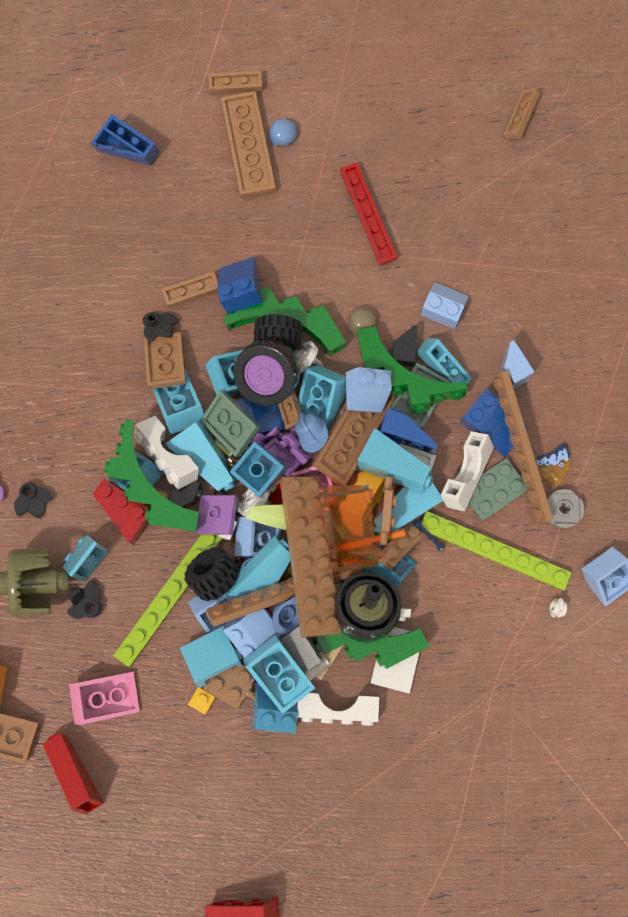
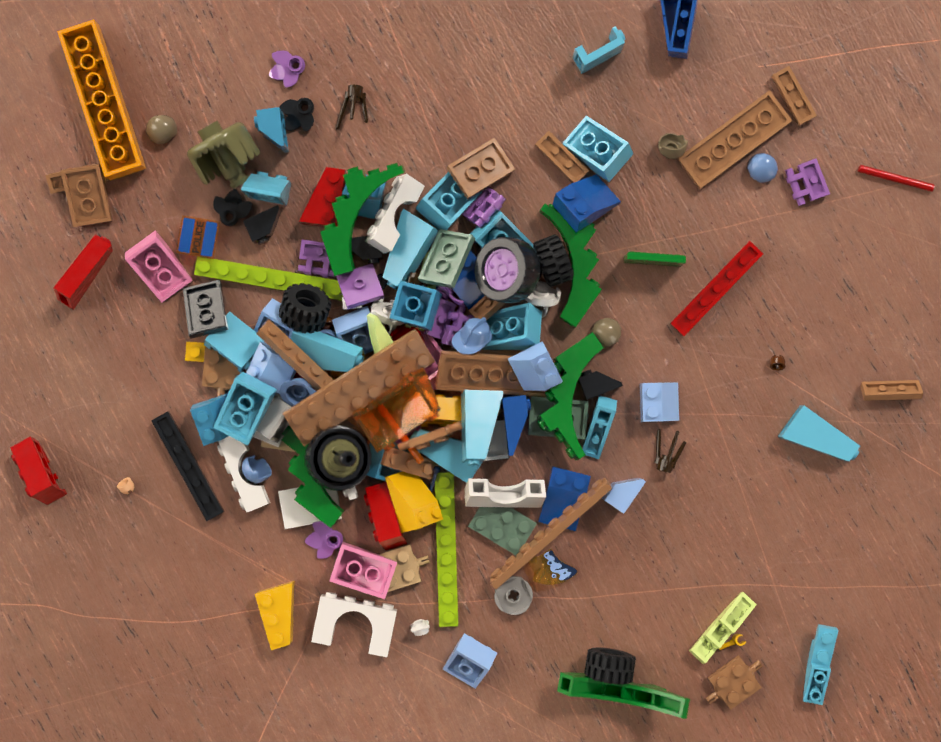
camera: 65 degrees right, 10 degrees up
(31, 527) = (272, 126): none -> dark azure slope
(42, 441) = (354, 94): none -> dark brown plant
(96, 646) = (198, 237): none -> piece
(115, 580) = (263, 225): none -> black slope
(117, 229) = (586, 62): none -> medium azure panel
(160, 326) = (512, 148): black plate -> none
(165, 542) = (316, 252): none -> medium lavender plate
(166, 670) = (205, 309): none -> tile
(198, 254) = (598, 148): none -> medium azure slope
(200, 373) = (484, 207): none -> medium lavender plate
(228, 193) = (672, 145): none -> dark tan hair
(297, 831) = (126, 485): none -> light nougat hinge
(306, 760) = (187, 466): none -> black plate
(315, 98) = (812, 179): none -> medium lavender plate
(318, 249) = (654, 259): none -> green tile
(341, 694) = (256, 470): none -> medium blue hair
(343, 36) = (896, 178): none -> red bar
(434, 663) = (321, 539): none -> medium lavender plate
(438, 558) = (412, 501): none -> yellow slope
(439, 591) = (384, 517): none -> red wedge
(455, 193) = (777, 362): none -> reddish brown hinge
(482, 636) = (363, 570): none -> bright pink slope
(486, 738) = (277, 613): none -> yellow wedge
(493, 604) = (407, 567): none -> tan plate
(501, 323) = (666, 462): none -> dark brown plant
(504, 681) = (381, 618): none -> white arch
(533, 187) = (817, 434): none -> medium azure slope

